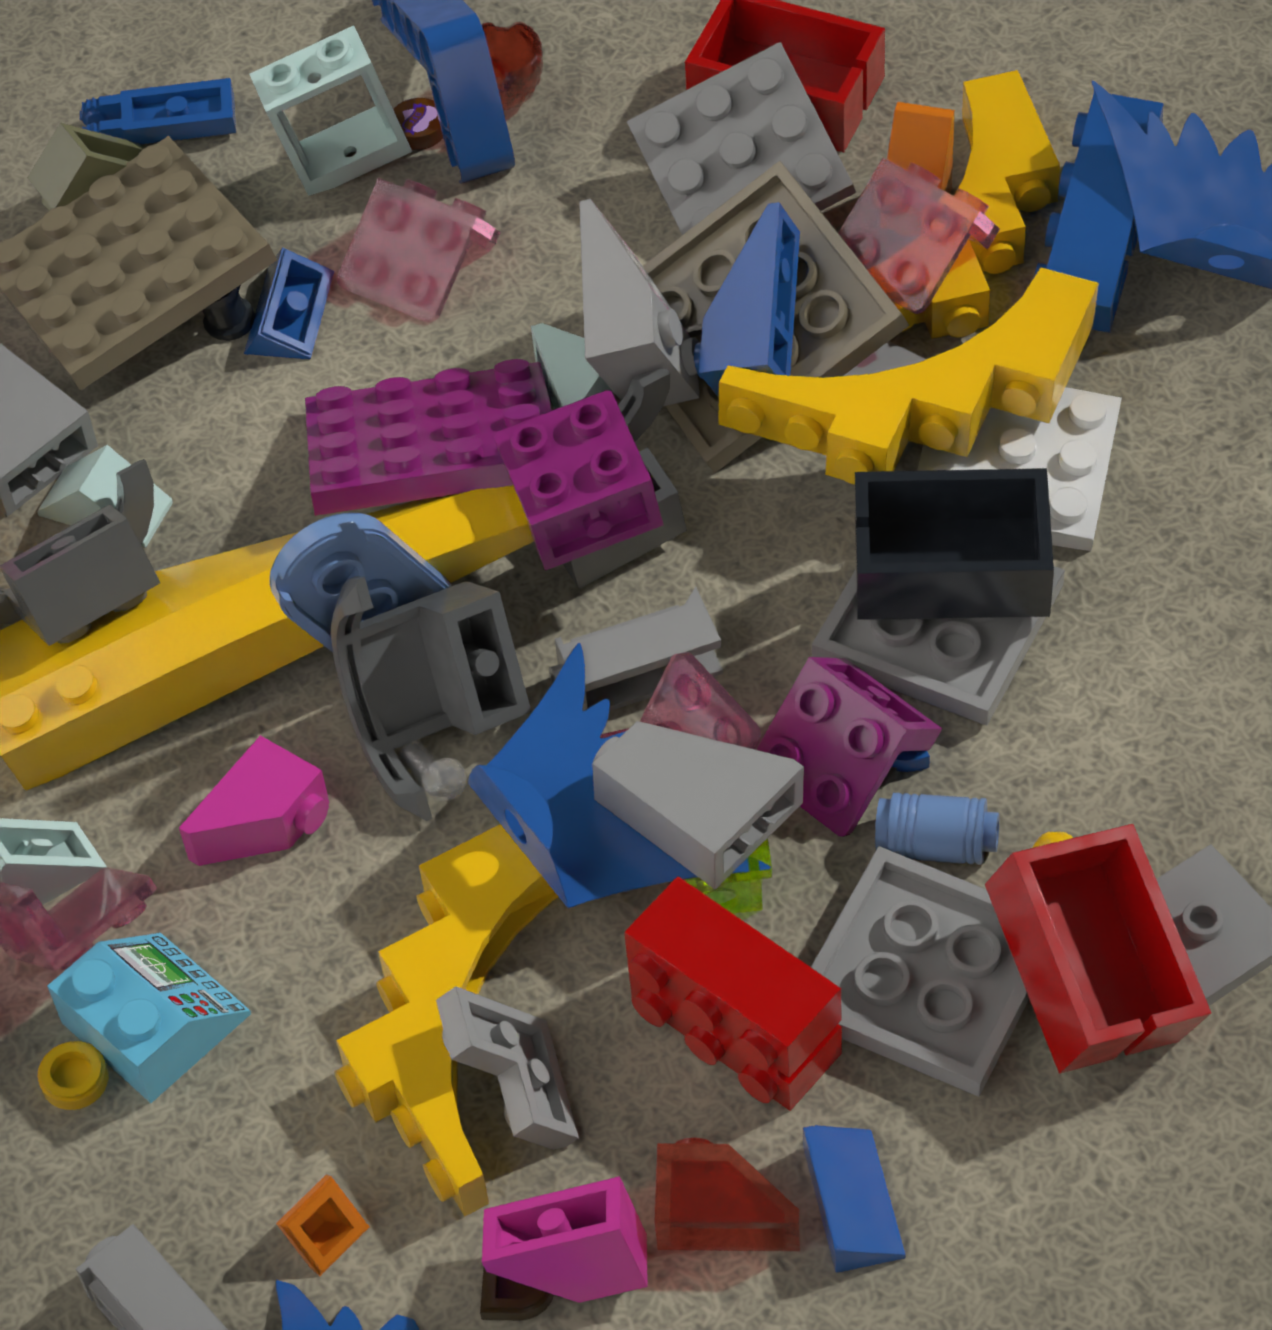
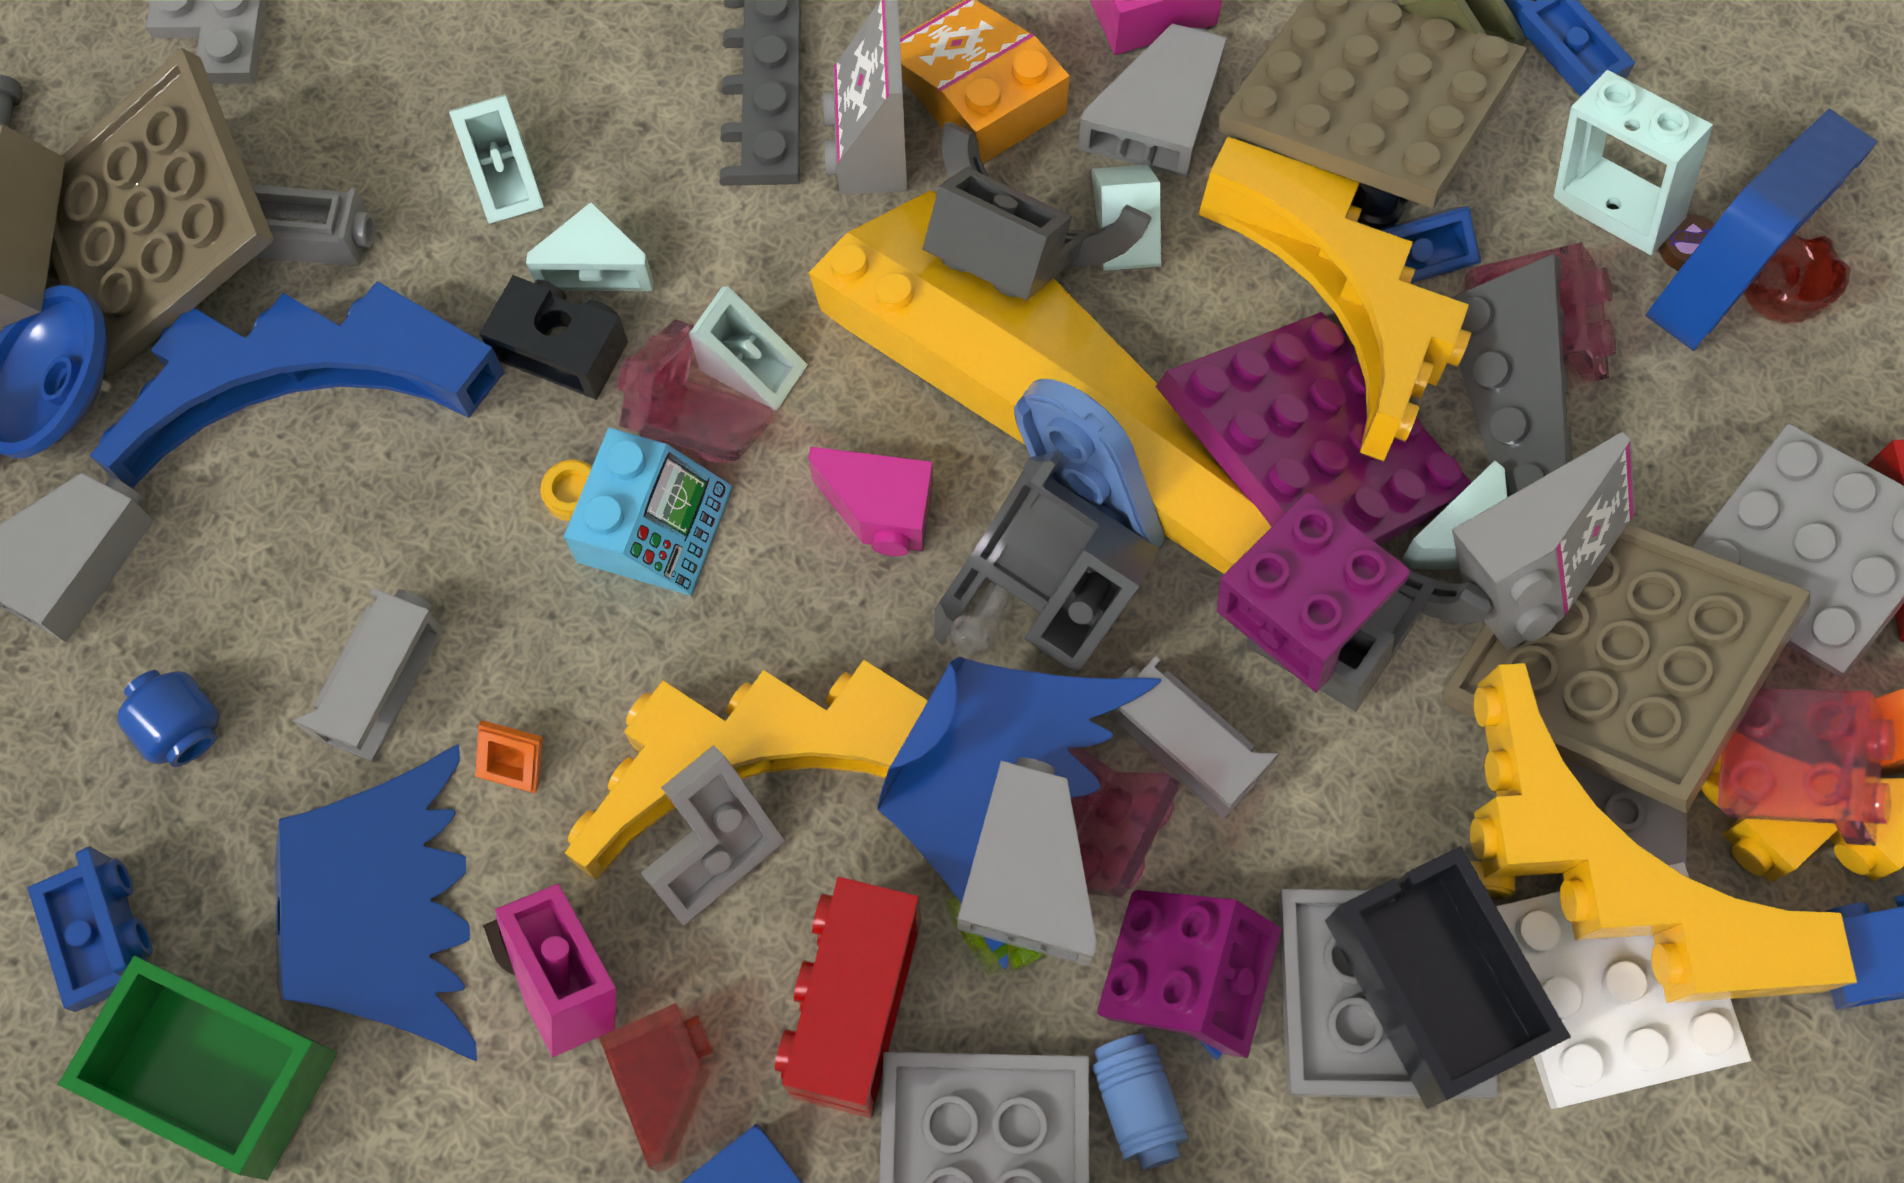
camera: 60 degrees right, 15 degrees up
(296, 343) = (1359, 271): none -> yellow arch
(458, 280) = (1519, 371): none -> dark grey wing
(755, 306) = (1607, 657): blue slope -> none

